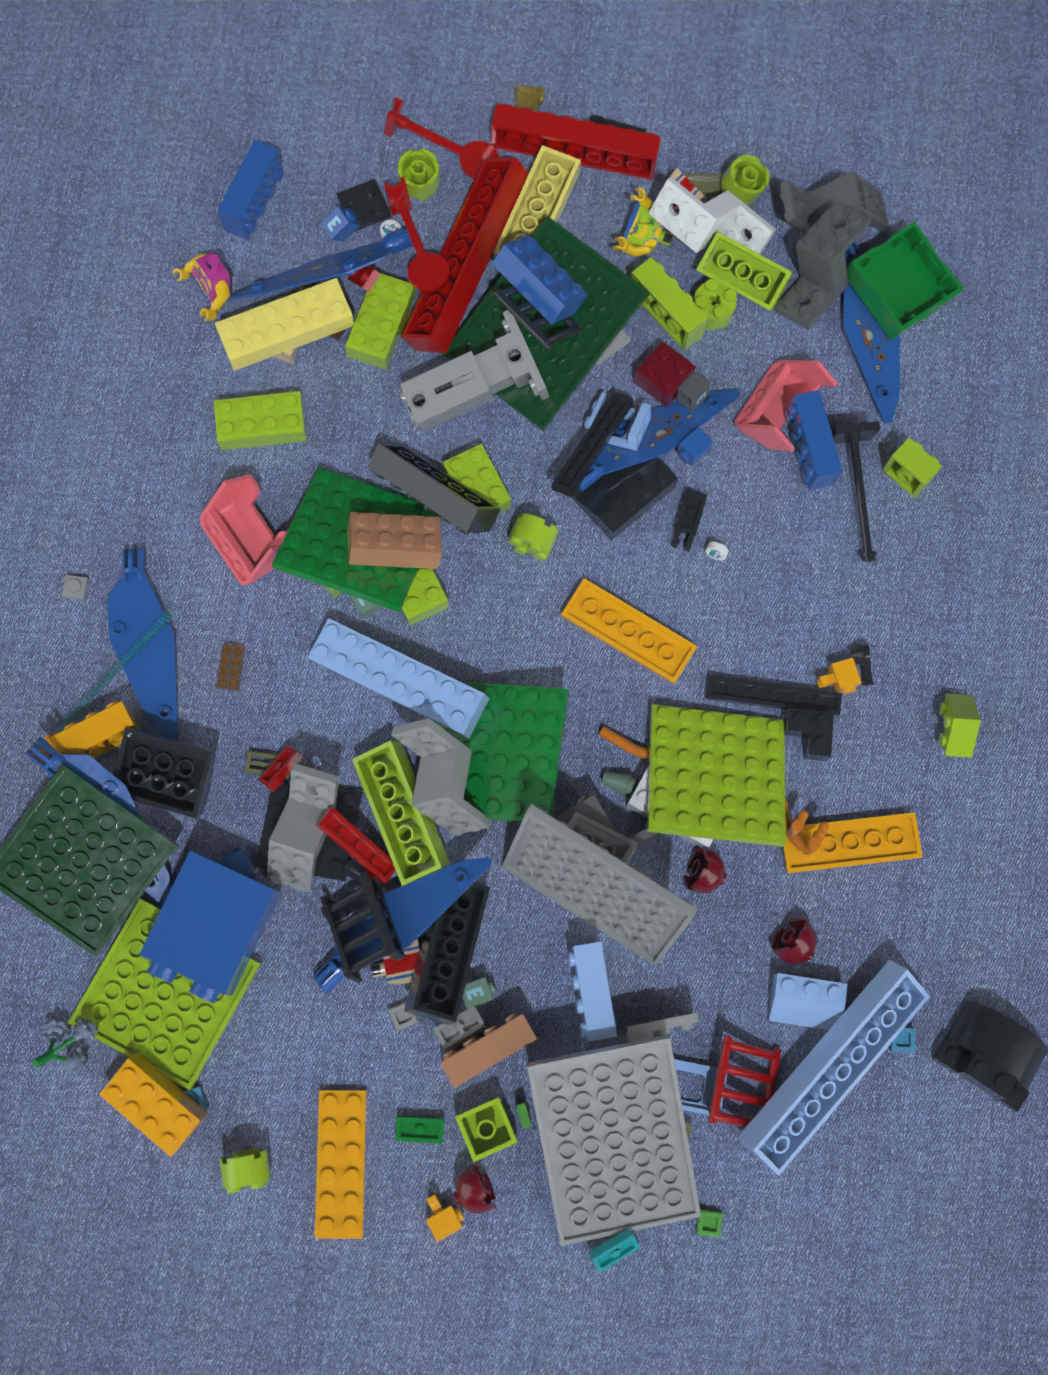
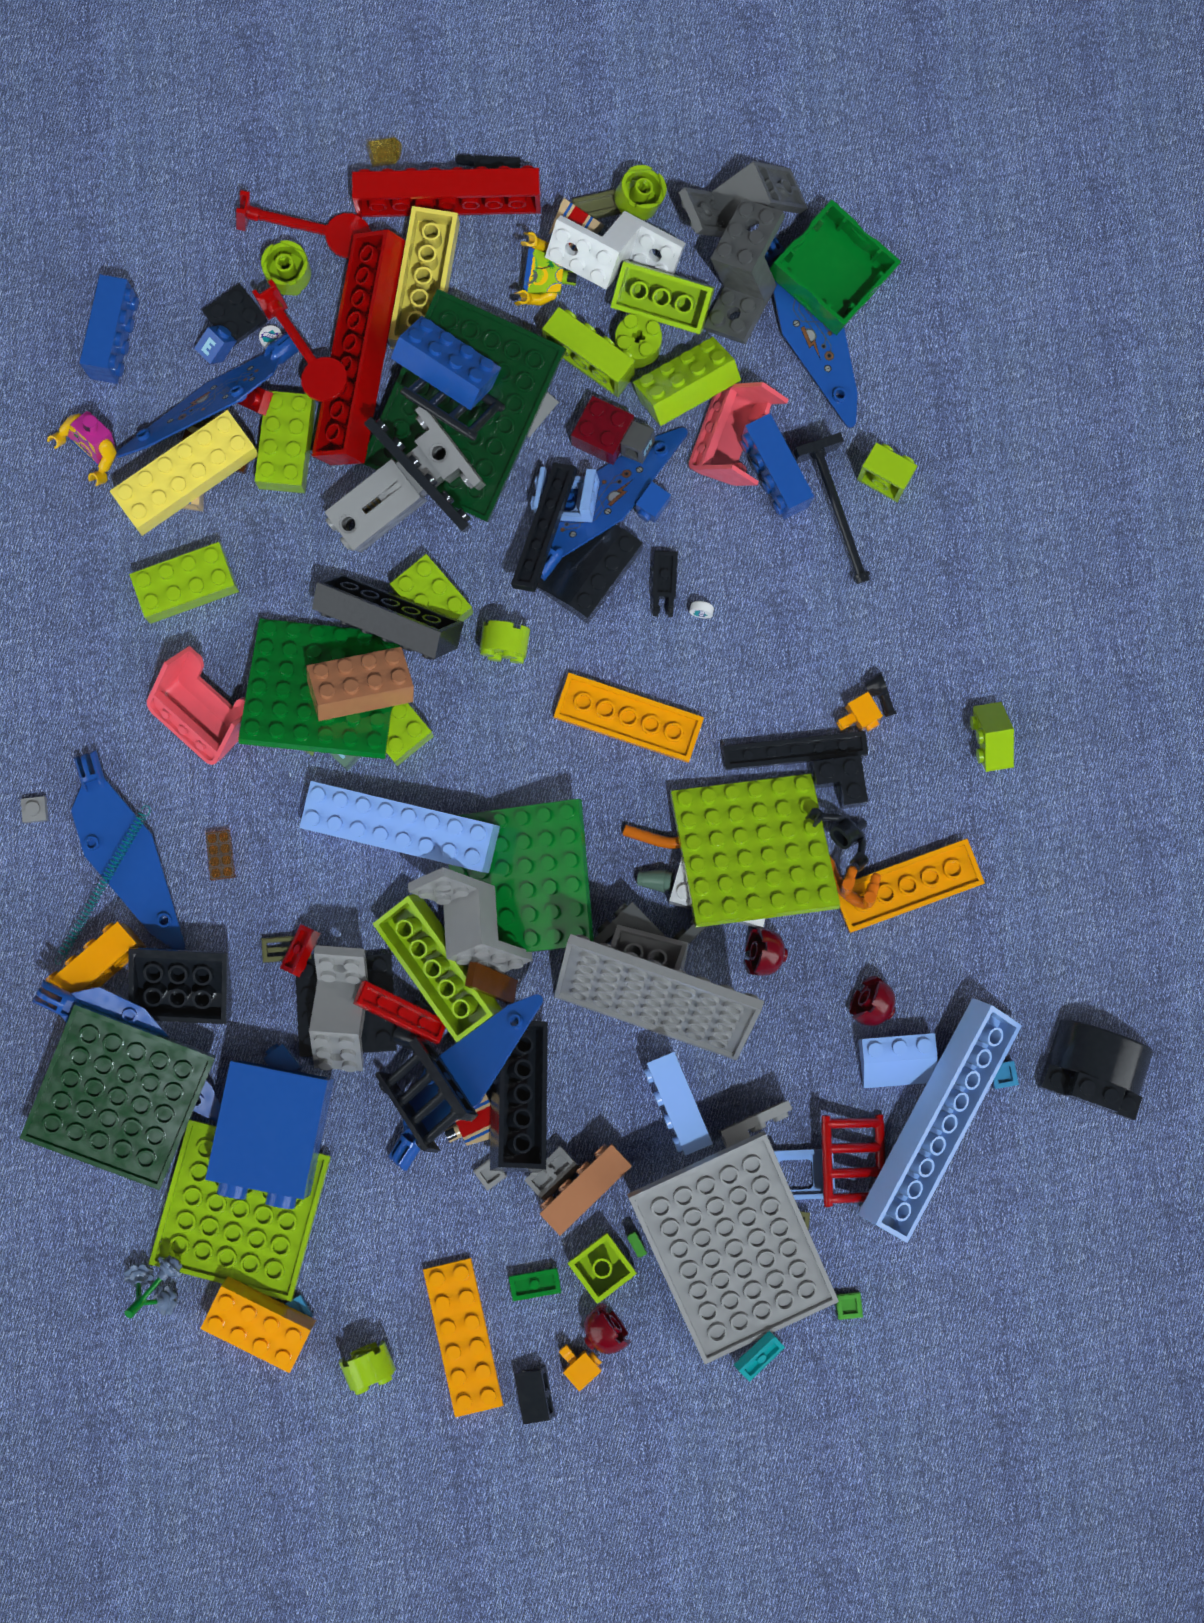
camera: 10 degrees left, 5 degrees up
(394, 1235) = (534, 1395): none -> black hinge
(447, 838) = (491, 982): none -> reddish brown tile
(478, 993) = (561, 1132): sand green brick -> none
(488, 360) = (412, 466): none -> black plate
(750, 348) = (687, 381): none -> lime brick
(803, 780) = (844, 834): none -> black piece

